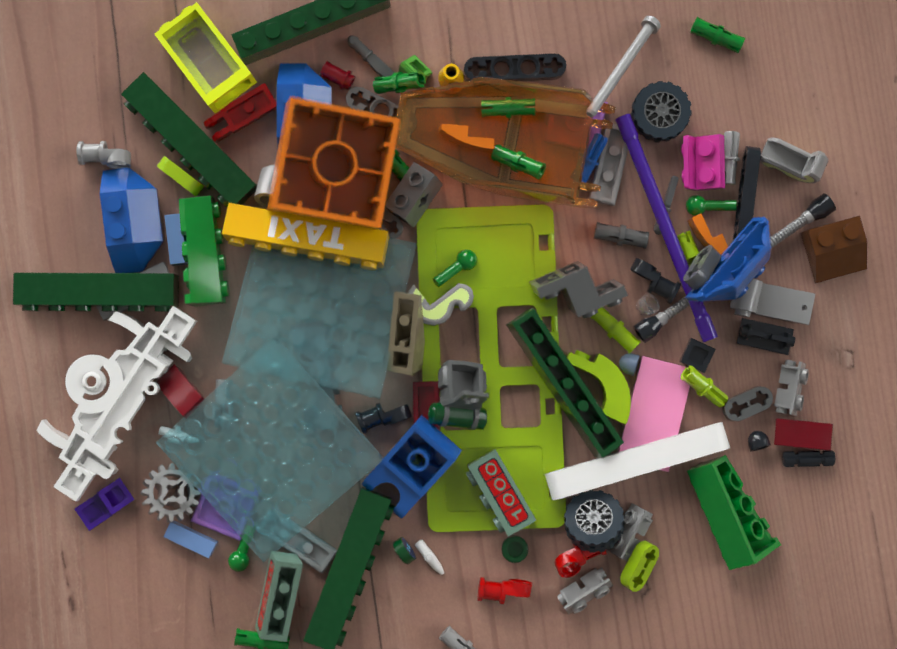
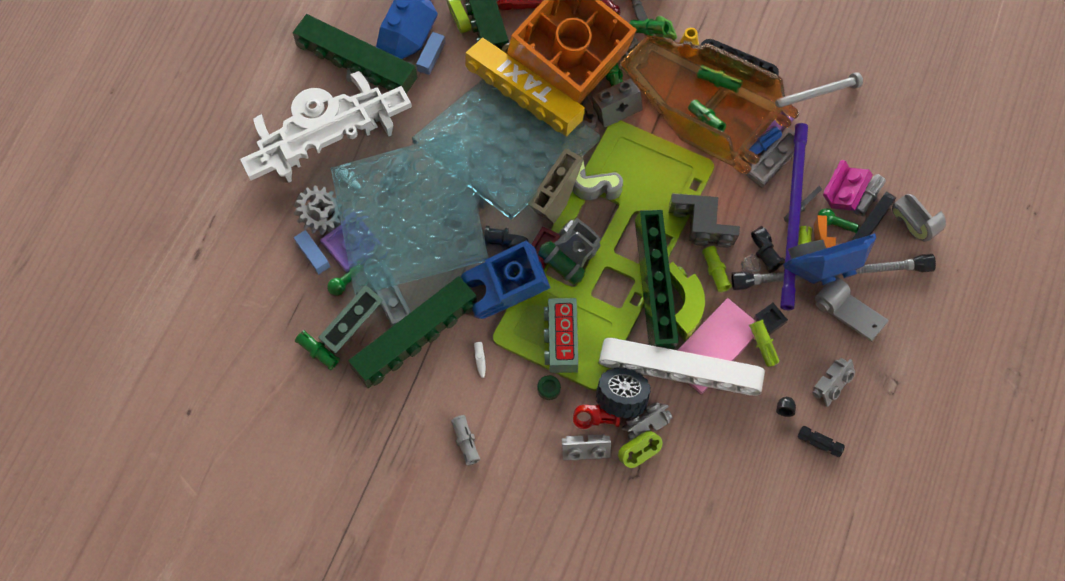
camera: 30 degrees right, 20 degrees down
(104, 504) = (267, 198): dark purple slope -> none
(180, 390) = (369, 144): dark red slope -> none
(203, 251) = (443, 67): green wedge -> none
(404, 550) = (463, 341): dark green tile -> none
(459, 135) = (671, 77): orange slope -> none
(465, 261) = (629, 167): green bar -> none
(498, 591) = (518, 410): red connector -> none
(621, 235) = (755, 208): dark grey pin -> none
(629, 363) = (714, 298): sand blue hinge -> none
(661, 111) = (832, 139): black wheel -> none
(717, 35) = (902, 110): green pin -> none
(731, 513) = (736, 446): green wedge -> none
(750, 409) = (795, 379): dark grey beam -> none
(765, 336) = (832, 333): black hinge -> none
(803, 434) = (827, 419): dark red slope -> none
(836, 249) = (921, 296): reddish brown slope -> none

